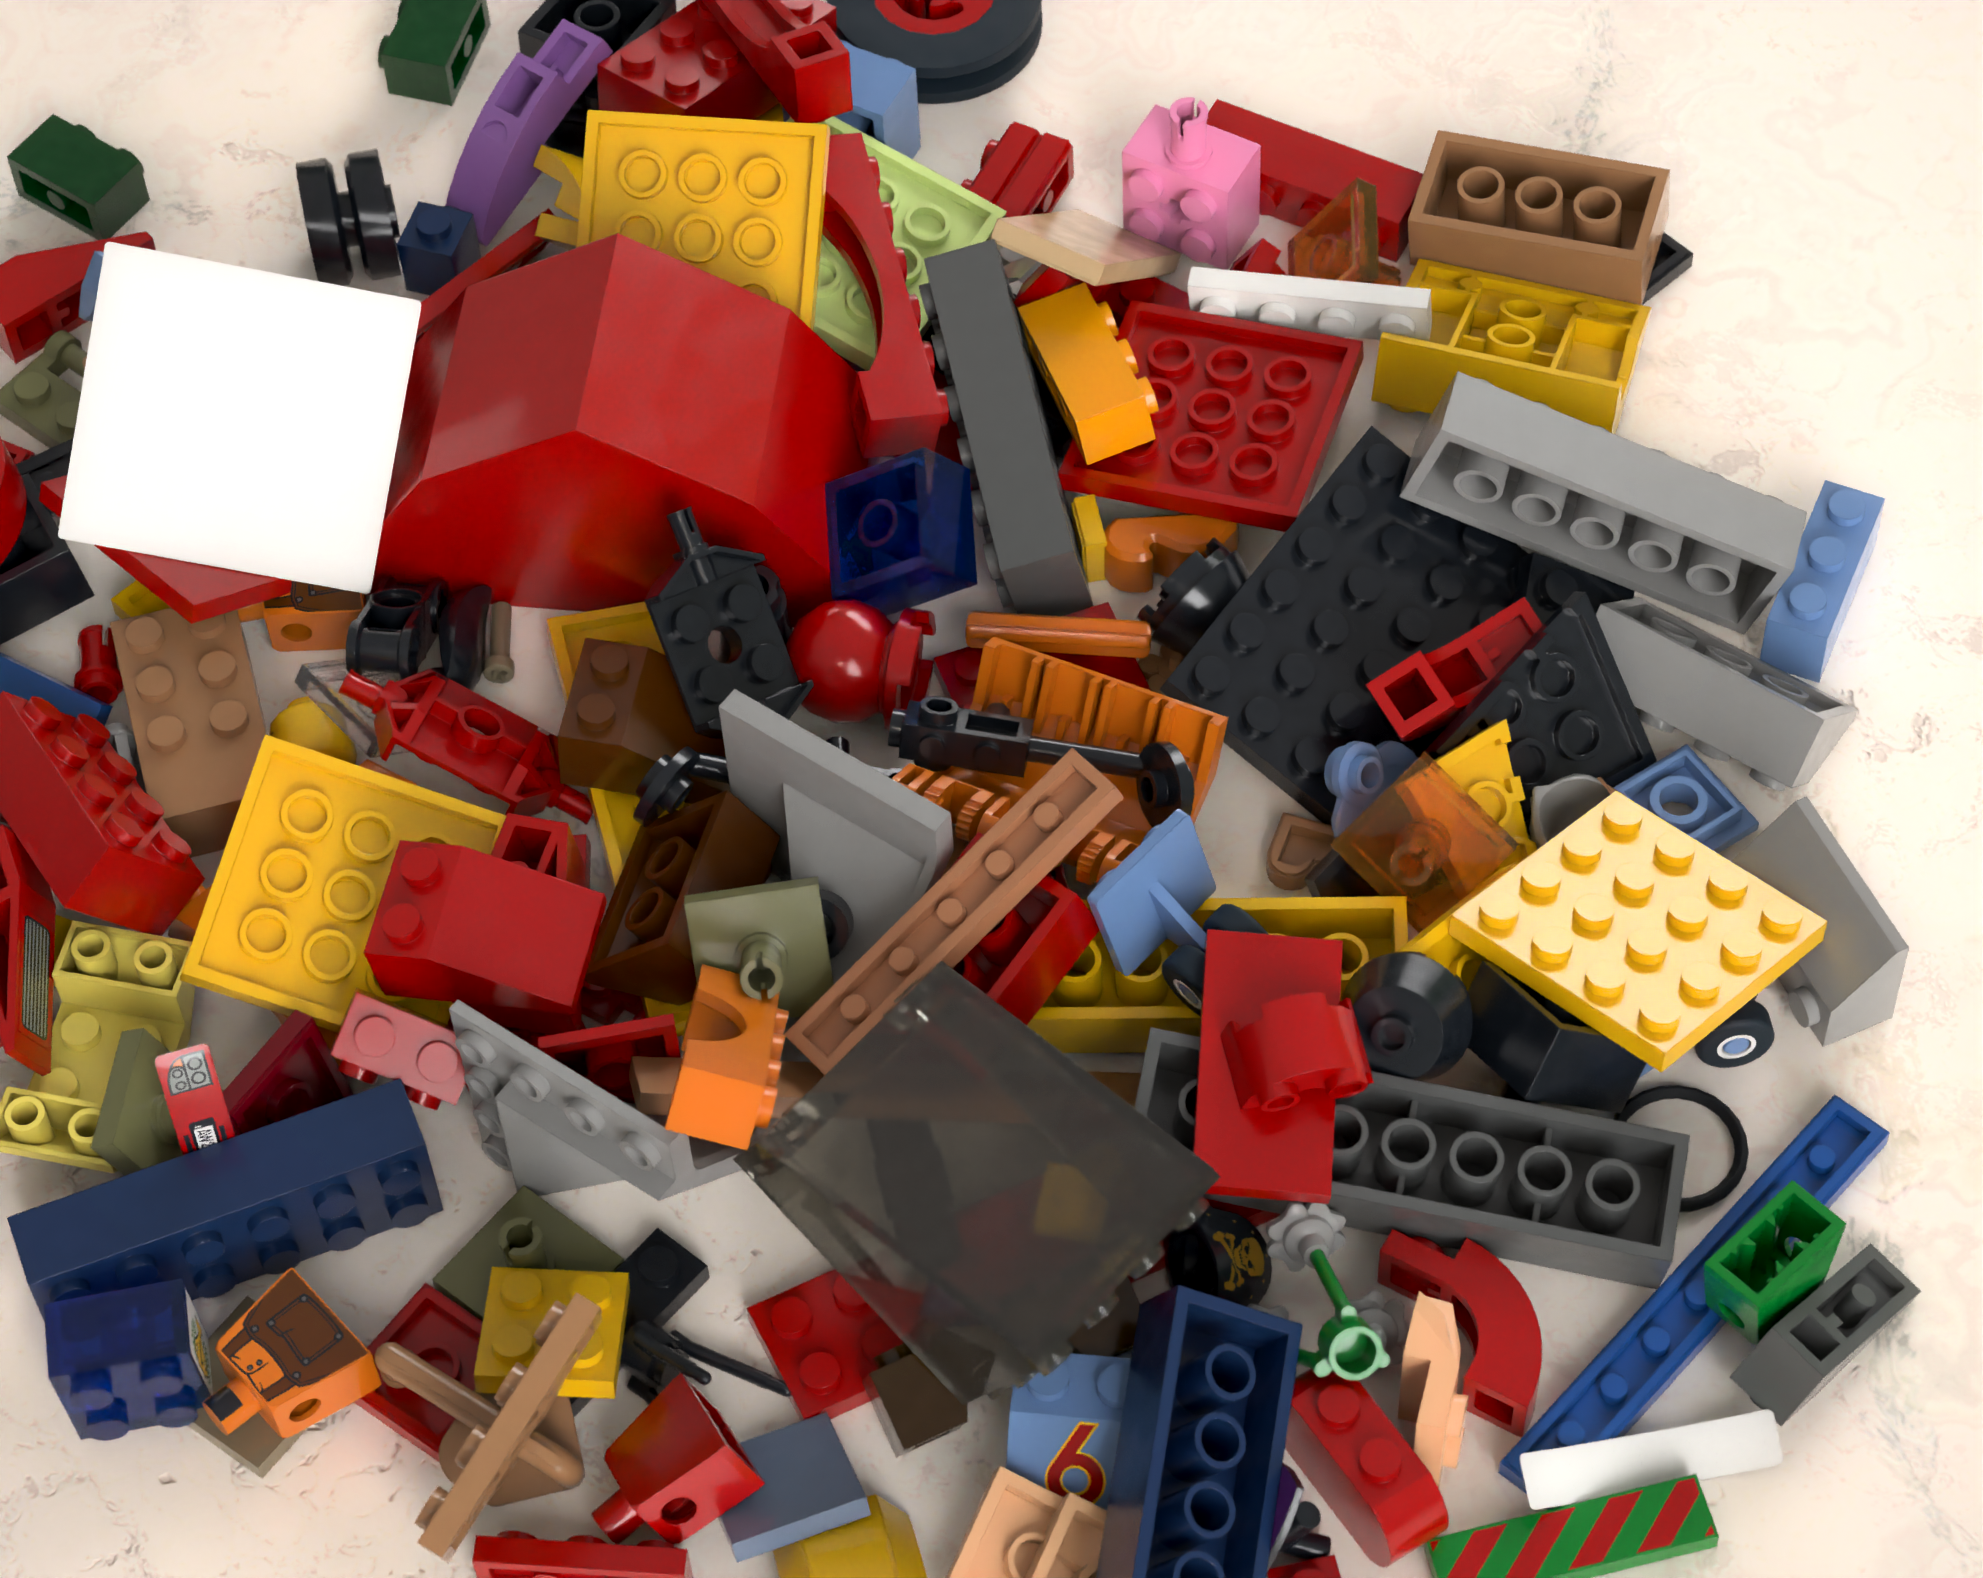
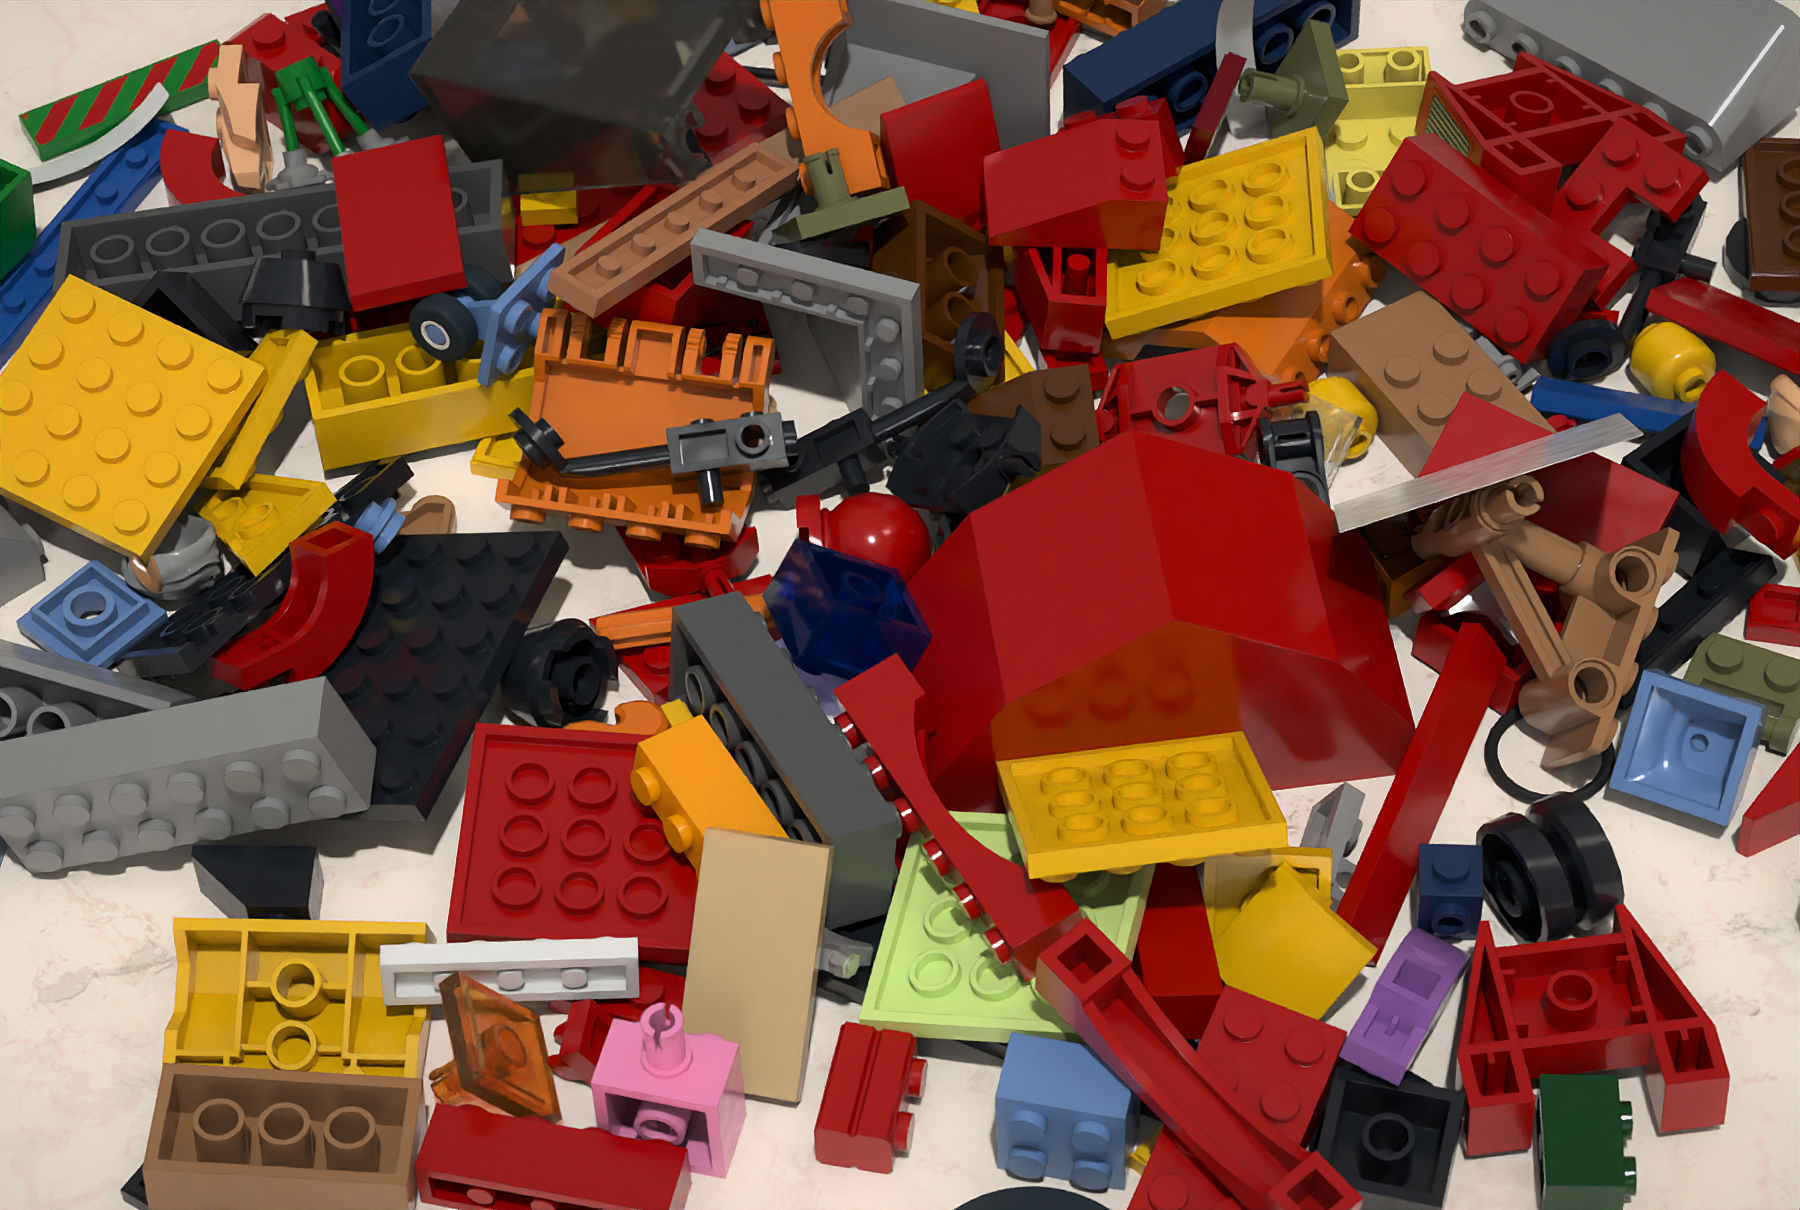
camera: 165 degrees right, 5 degrees down
(403, 108) = (1581, 1011): none -> red wedge
(1296, 1049) = (362, 196): red cylinder -> none
(1424, 842) = (304, 449): clear orange tile -> none

